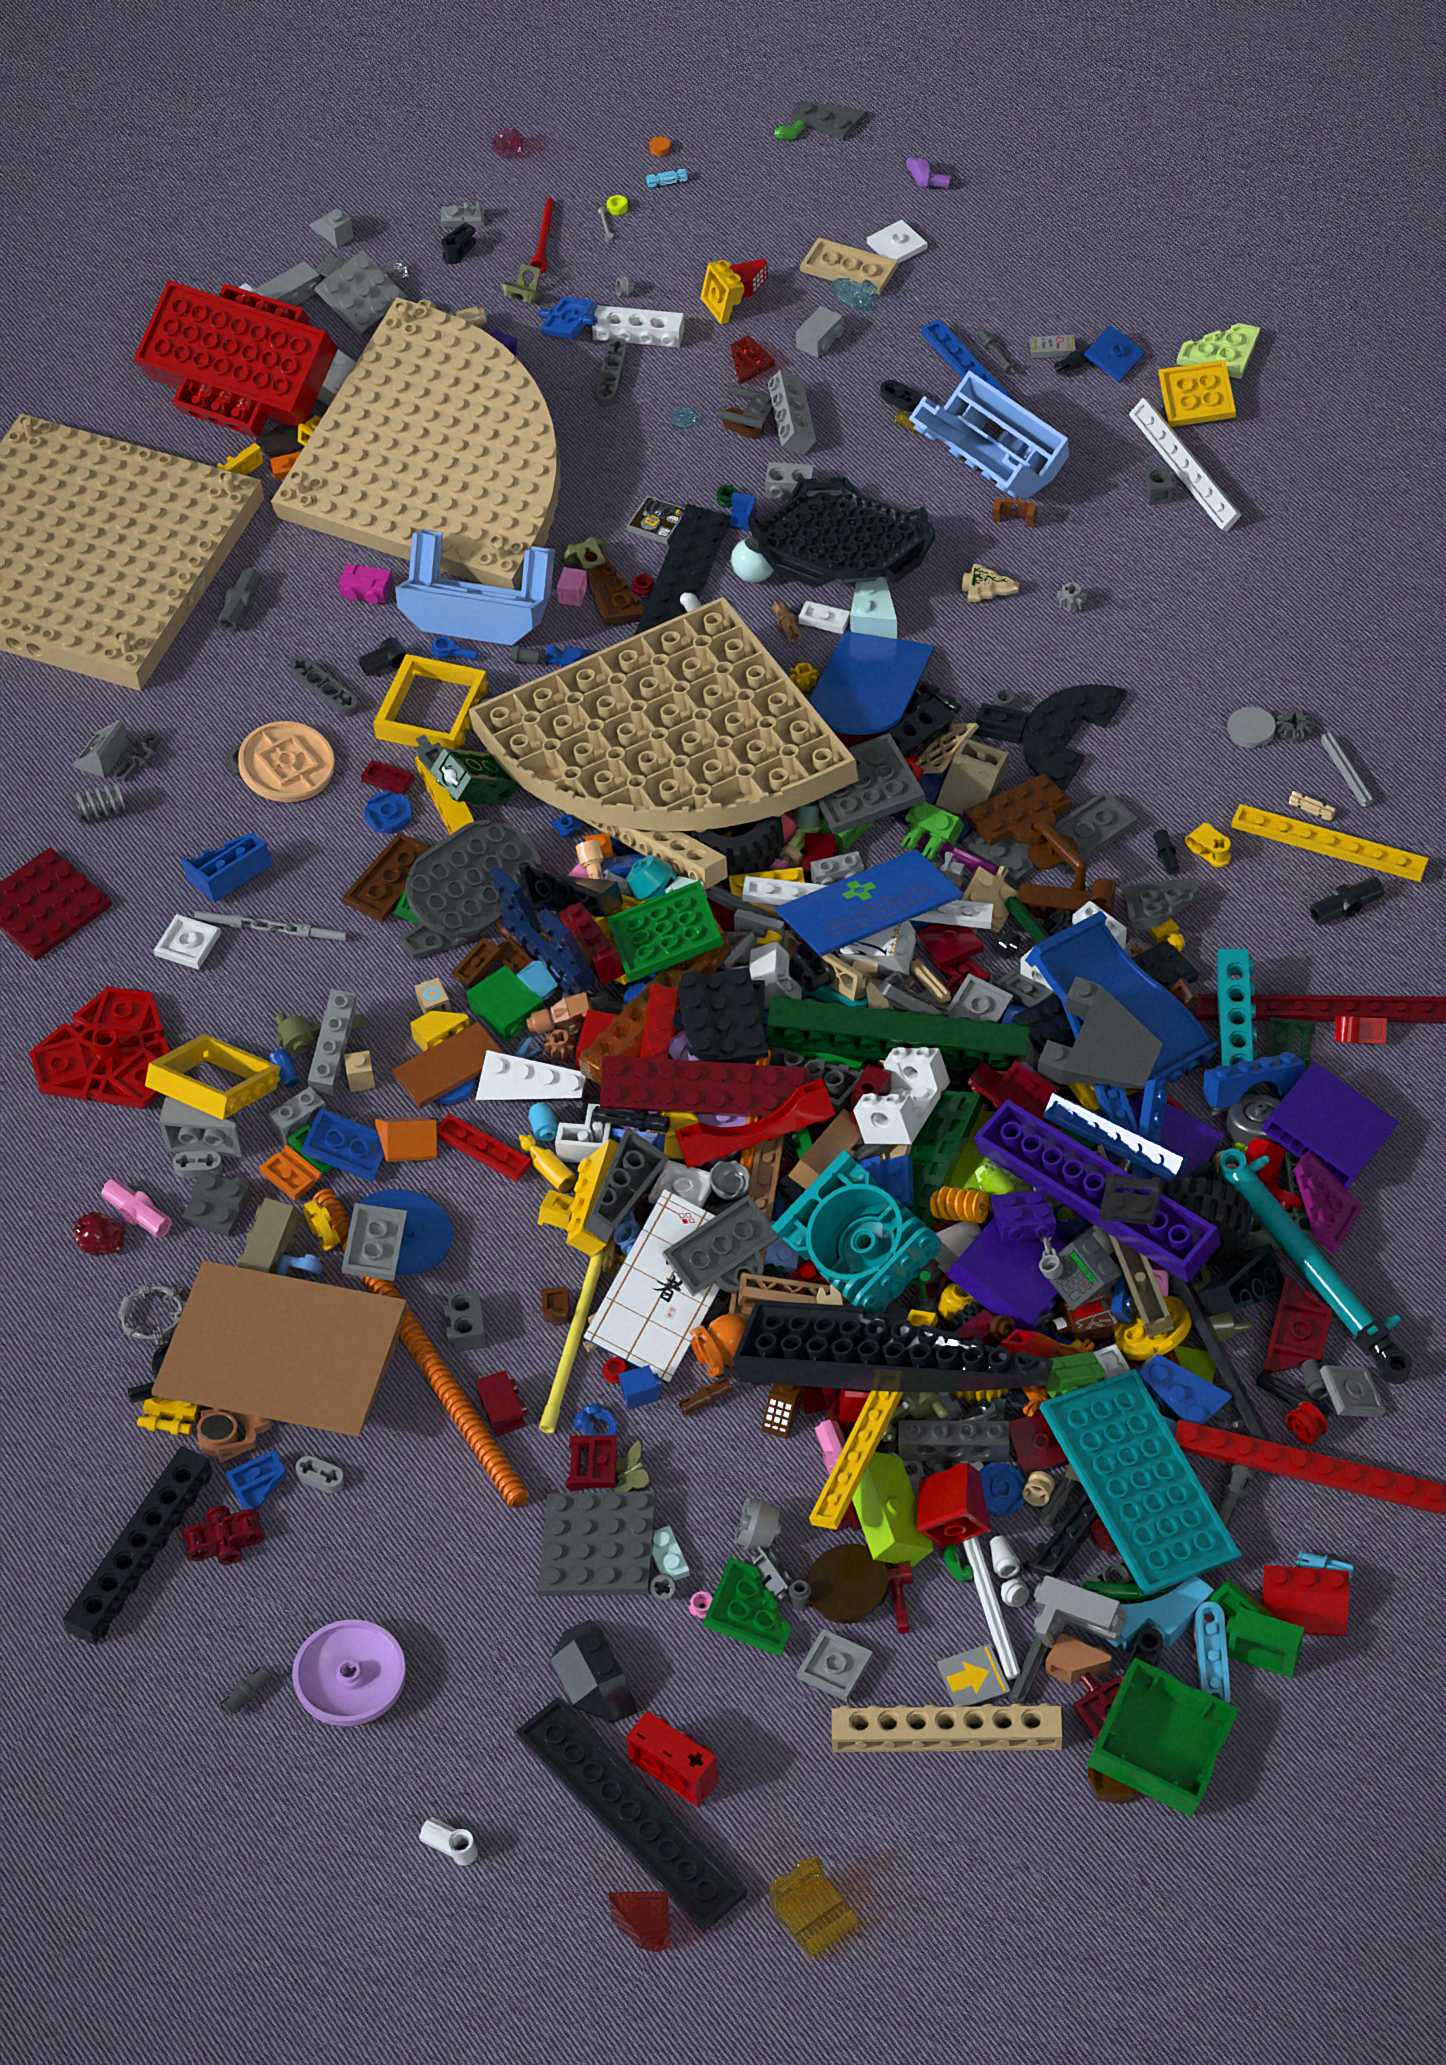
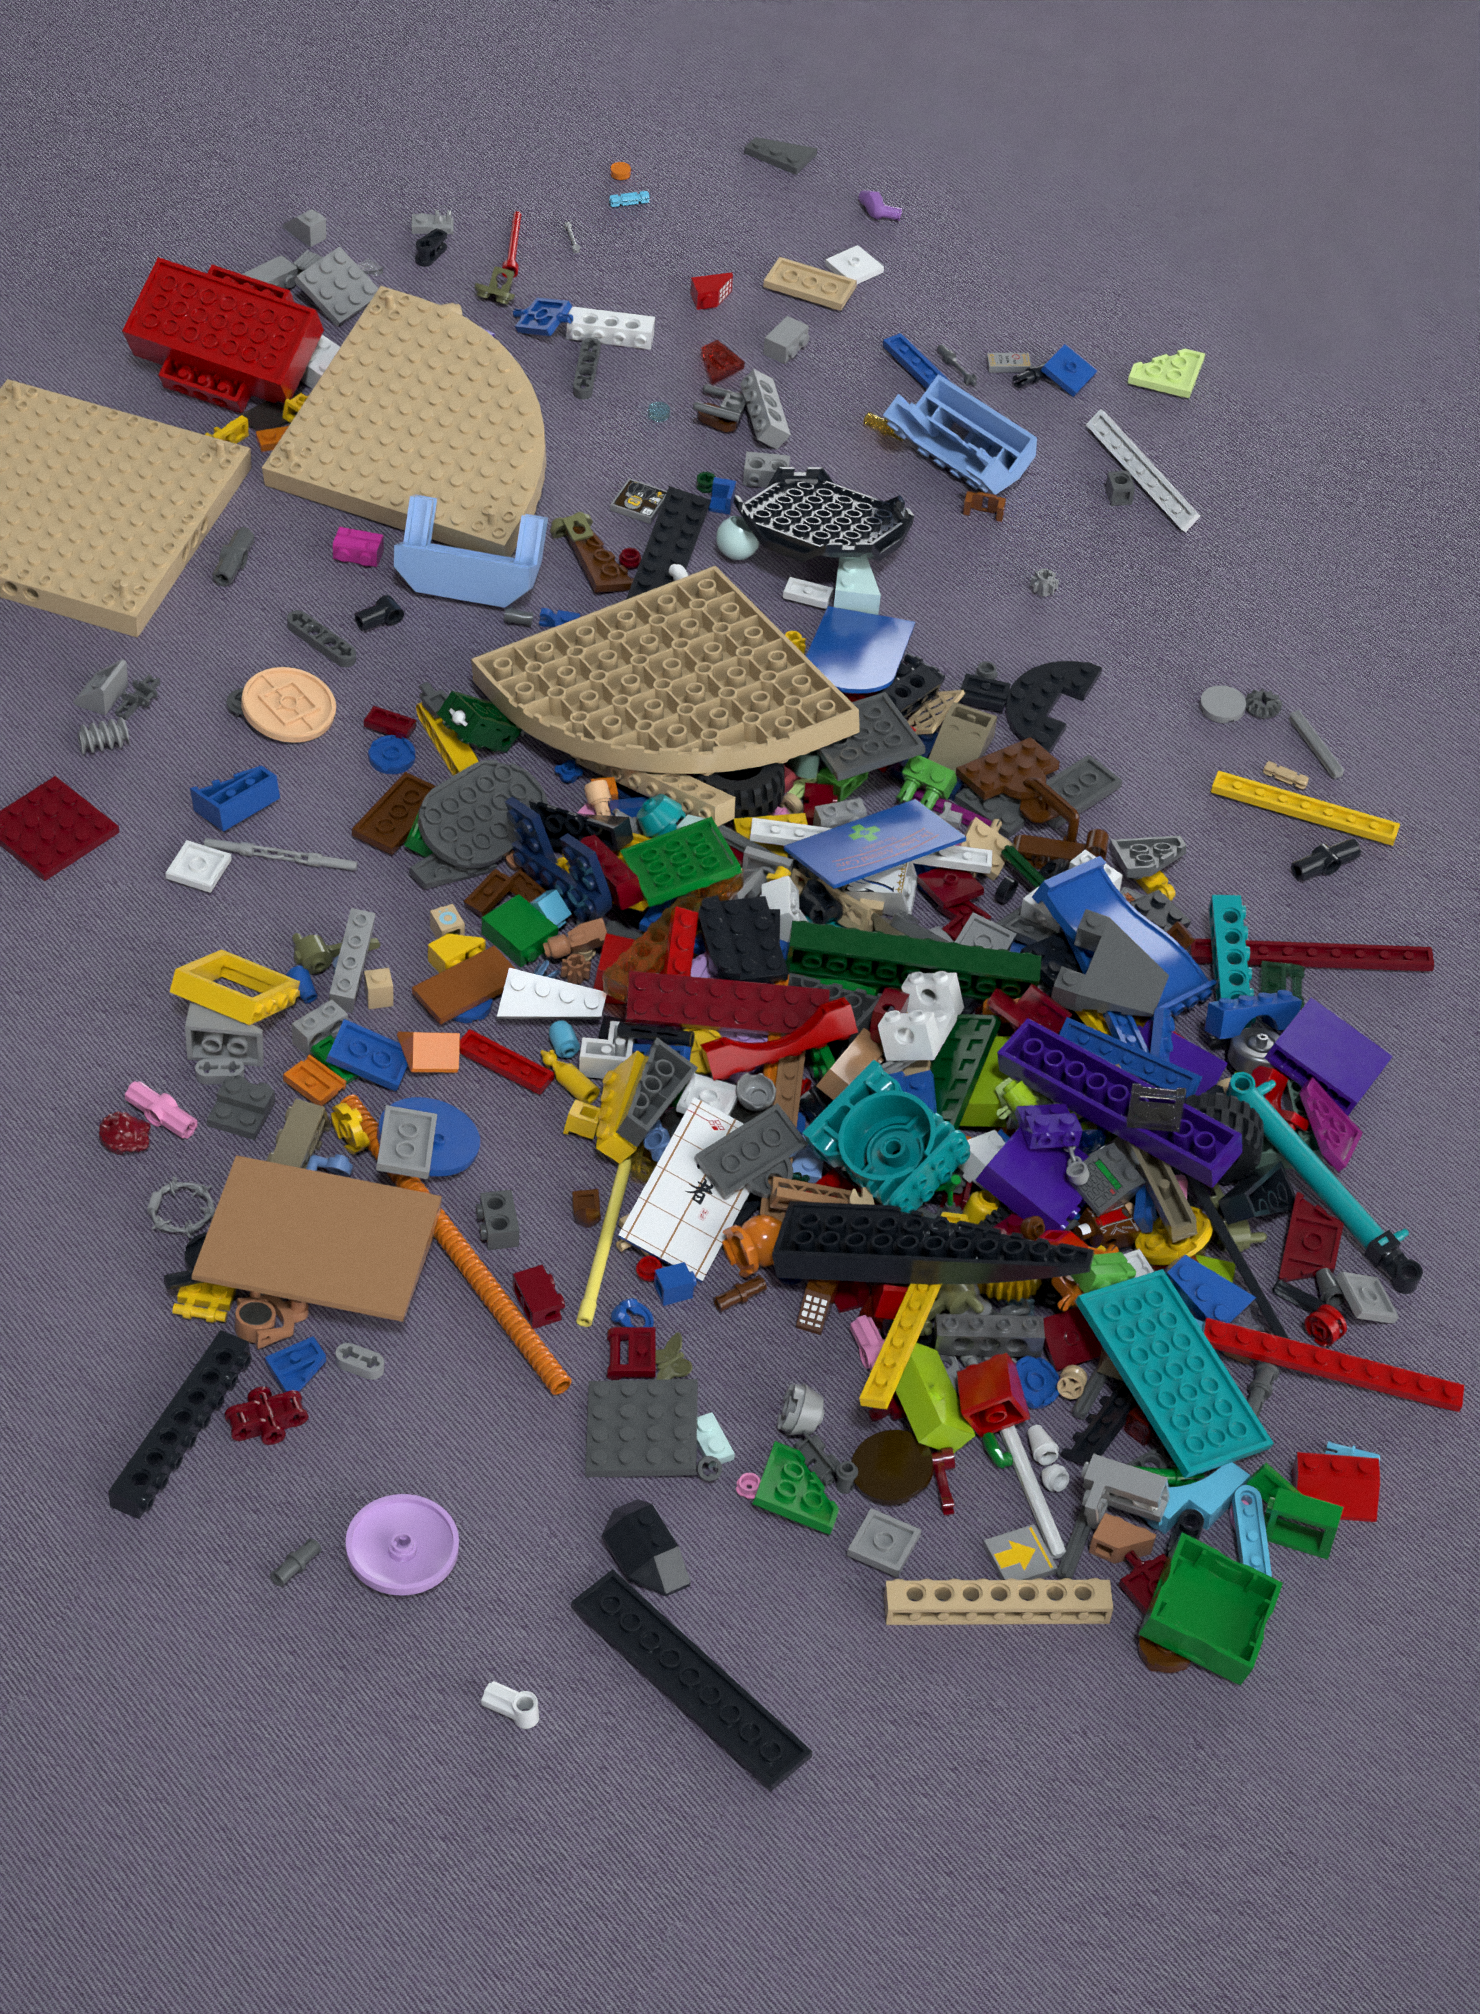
camera: 10 degrees left, 5 degrees down
(111, 1051) = (130, 963): red plate -> none
(405, 734) = (408, 684): yellow window -> none
(444, 648) = (439, 607): blue plate -> none
(508, 142) = (473, 160): clear pink head -> none
(572, 586) = (561, 556): bright pink brick -> none
(617, 205) = (582, 220): neon yellow tile -> none
(624, 286) = (594, 292): light grey plate -> none
(643, 1918) = (711, 1775): clear red slope -> none
(673, 1758) = (732, 1626): red piece -> none
(721, 290) = (691, 298): yellow plate -> none
(786, 621) = (771, 595): medium nougat pin -> none
(789, 132) = (744, 164): bright green arm -> none
(810, 1908) = (876, 1767): clear yellow piece -> none
(854, 293) = (817, 308): clear light blue piece -> none
(899, 395) = (867, 399): black plate -> none
(930, 981) = (934, 919): tan axle -> none
(960, 1204) = (984, 1116): light orange piece -> none
(987, 584) = (961, 569): tan rock -> none
(1166, 851) = (1151, 811): black axle -> none
(1197, 393) = (1150, 408): yellow plate -> none
(1210, 845) = (1190, 804): yellow piece -> none
(1360, 1029) = (1347, 974): red plate -> none

